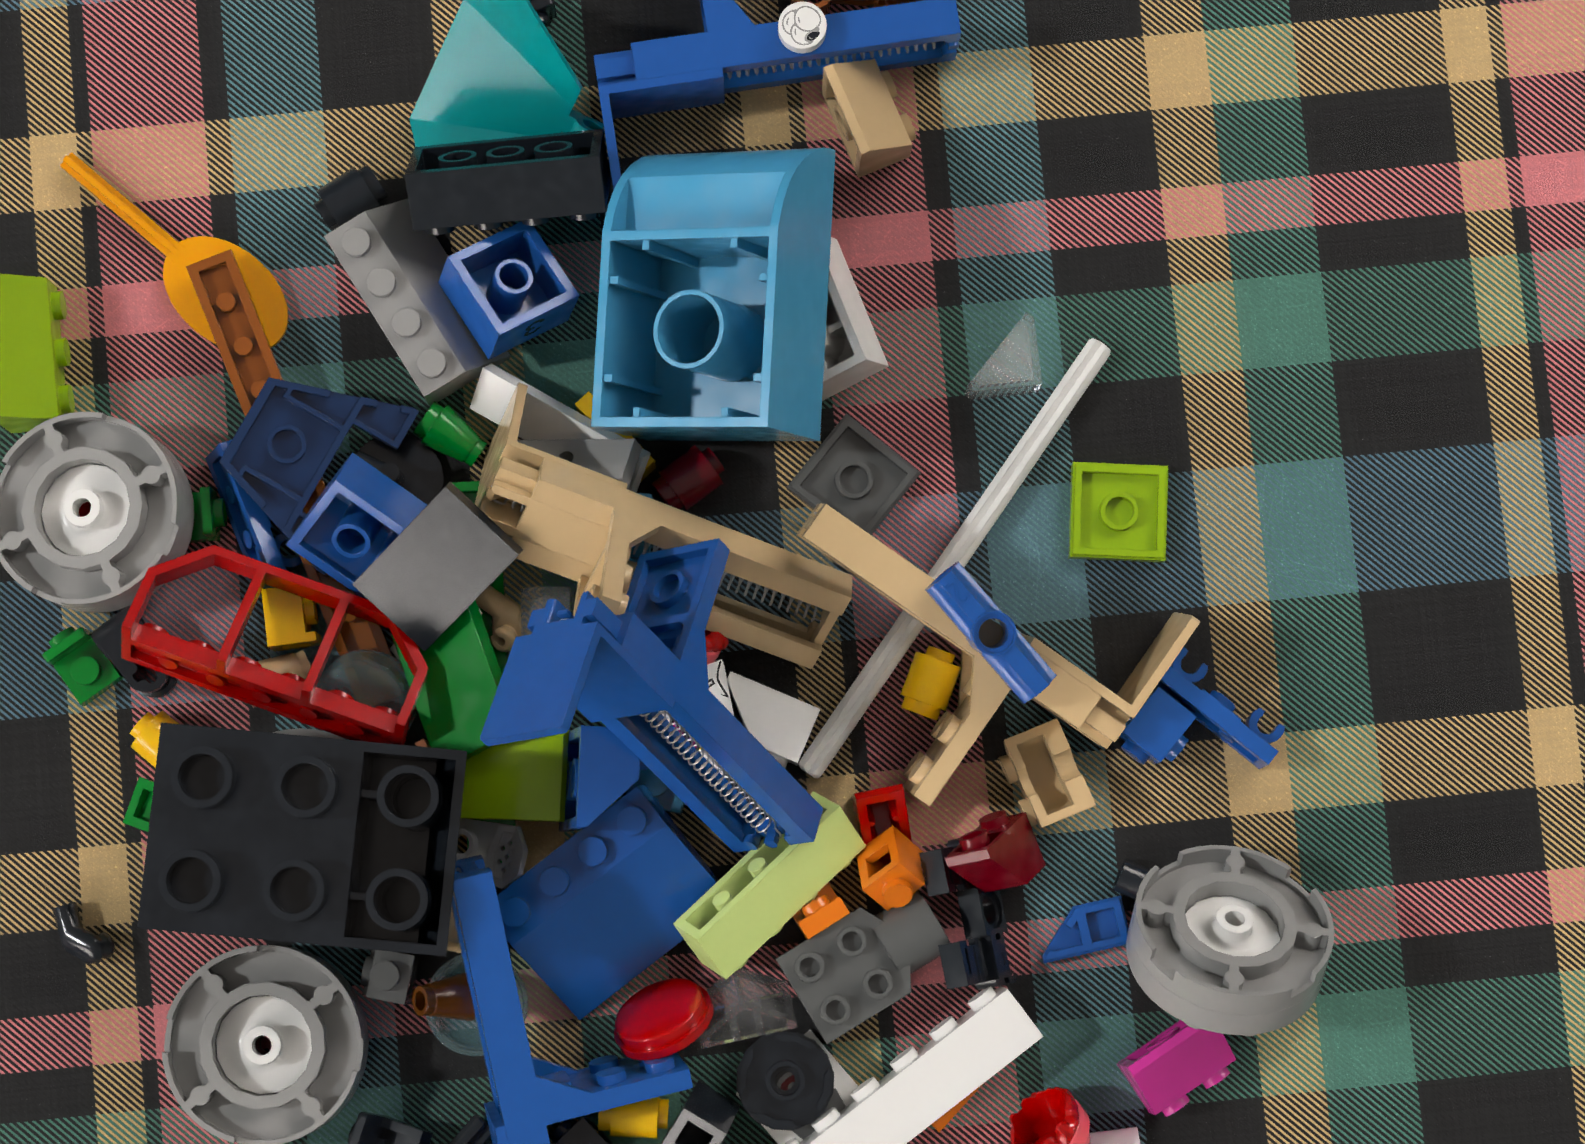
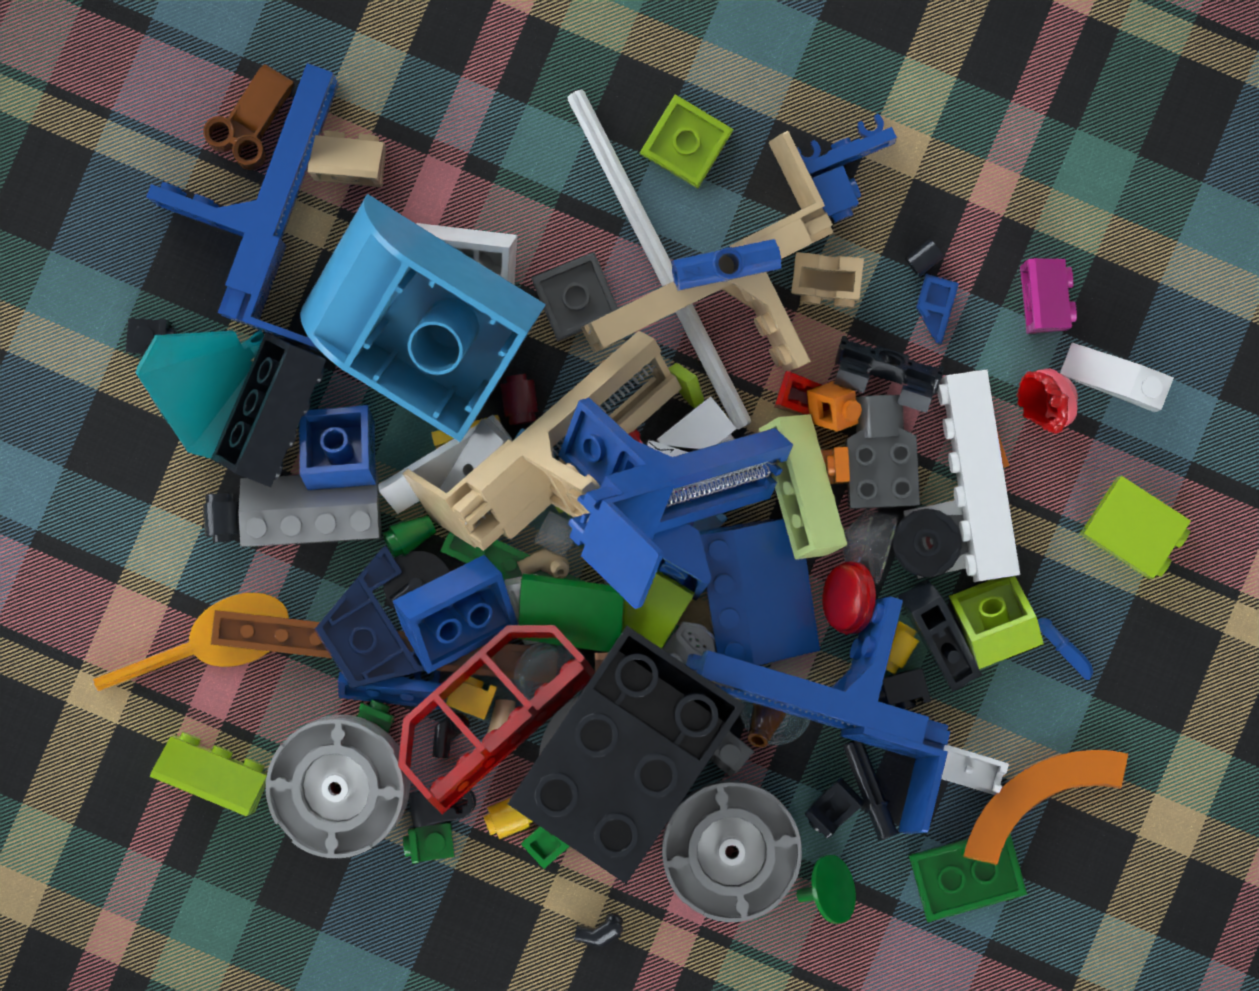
camera: 55 degrees left, 5 degrees up
(224, 611) = (444, 733): none -> black arm
(437, 566) = (496, 585): tile -> none
(802, 27) = (275, 171): white tile -> none
(822, 674) = (690, 386): none -> lime tile
(930, 682) = (730, 319): yellow brick -> none
(998, 853) = (860, 334): dark red slope -> none
(1012, 367) = (558, 156): clear slope -> none
(1229, 940) = (991, 222): light grey piece -> none

